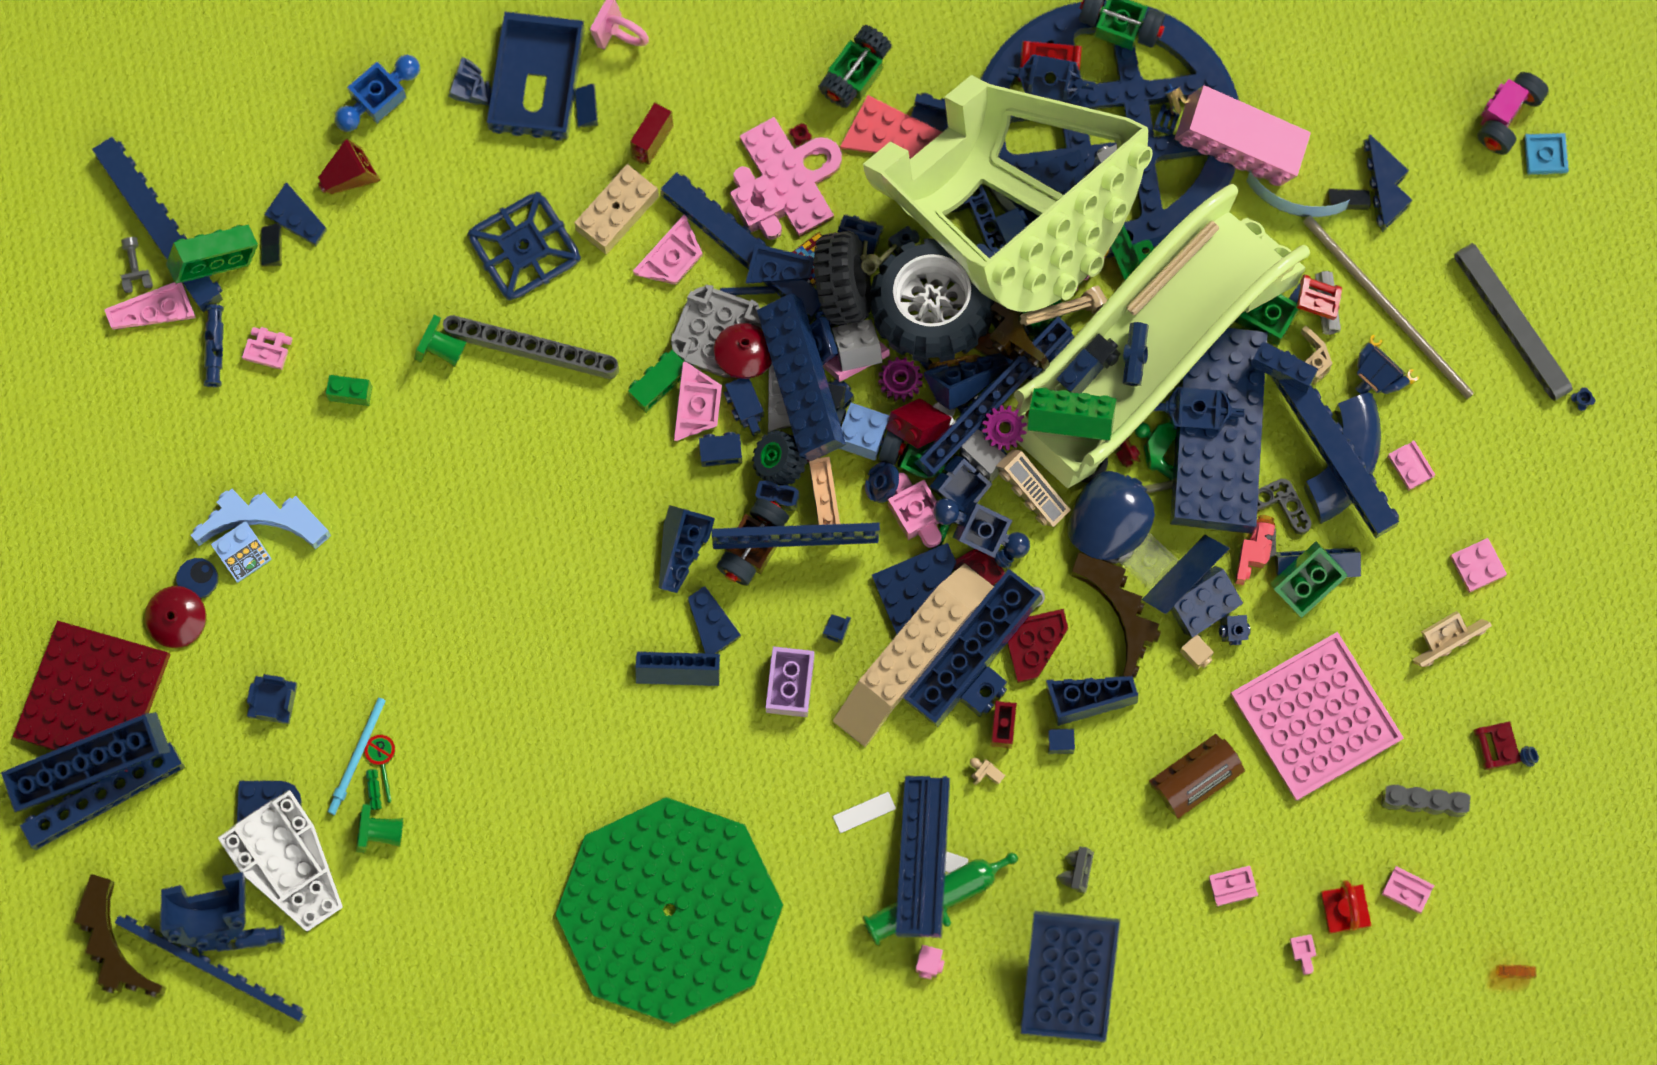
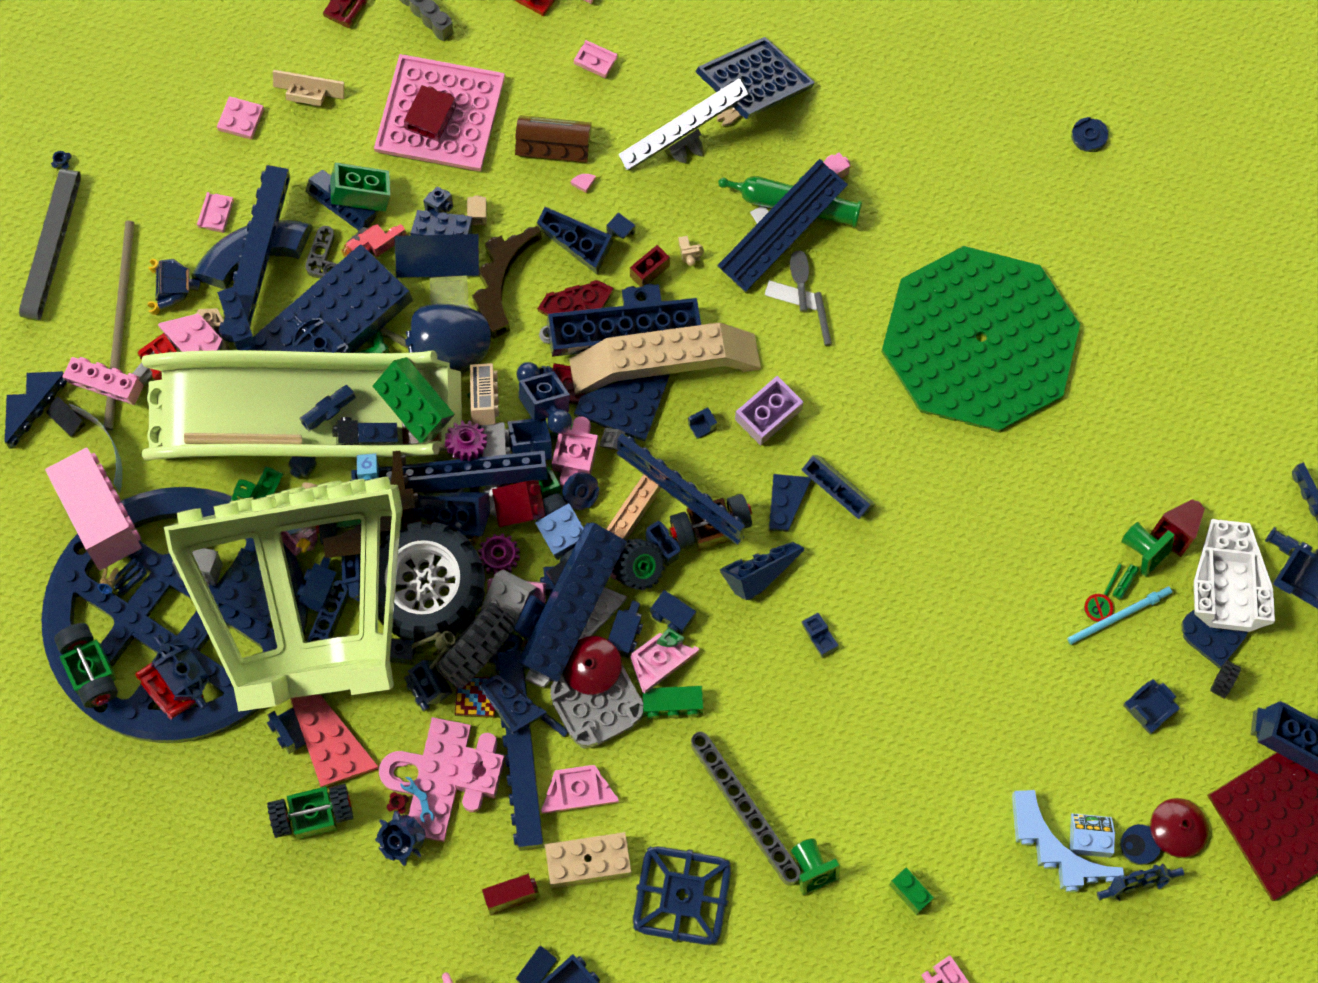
camera: 140 degrees left, 5 degrees down
(171, 548) = (1147, 878): none -> dark blue plate
(226, 767) = (1225, 679): none -> black tyre
(362, 877) = (1183, 523): none -> dark red slope
(588, 534) = (820, 635): none -> dark blue slope
(703, 426) = (670, 638): none -> green tile
(770, 105) = (400, 838): none -> dark blue brick
(785, 149) = (421, 796): none -> dark azure piece
(818, 810) = (822, 318): none -> dark grey piece
(874, 835) = (800, 272): none -> dark grey piece
(892, 546) = (609, 438): none -> dark grey tile
(1056, 335) = (367, 466): none -> dark azure brick
(1087, 869) = (684, 124): none -> plate
(1134, 760) = (583, 181): none -> bright pink tile
(1305, 332) = (191, 334): none -> bright pink wing
(1319, 700) = (430, 113): none -> dark red brick
(1347, 245) = (103, 380): none -> bright pink brick

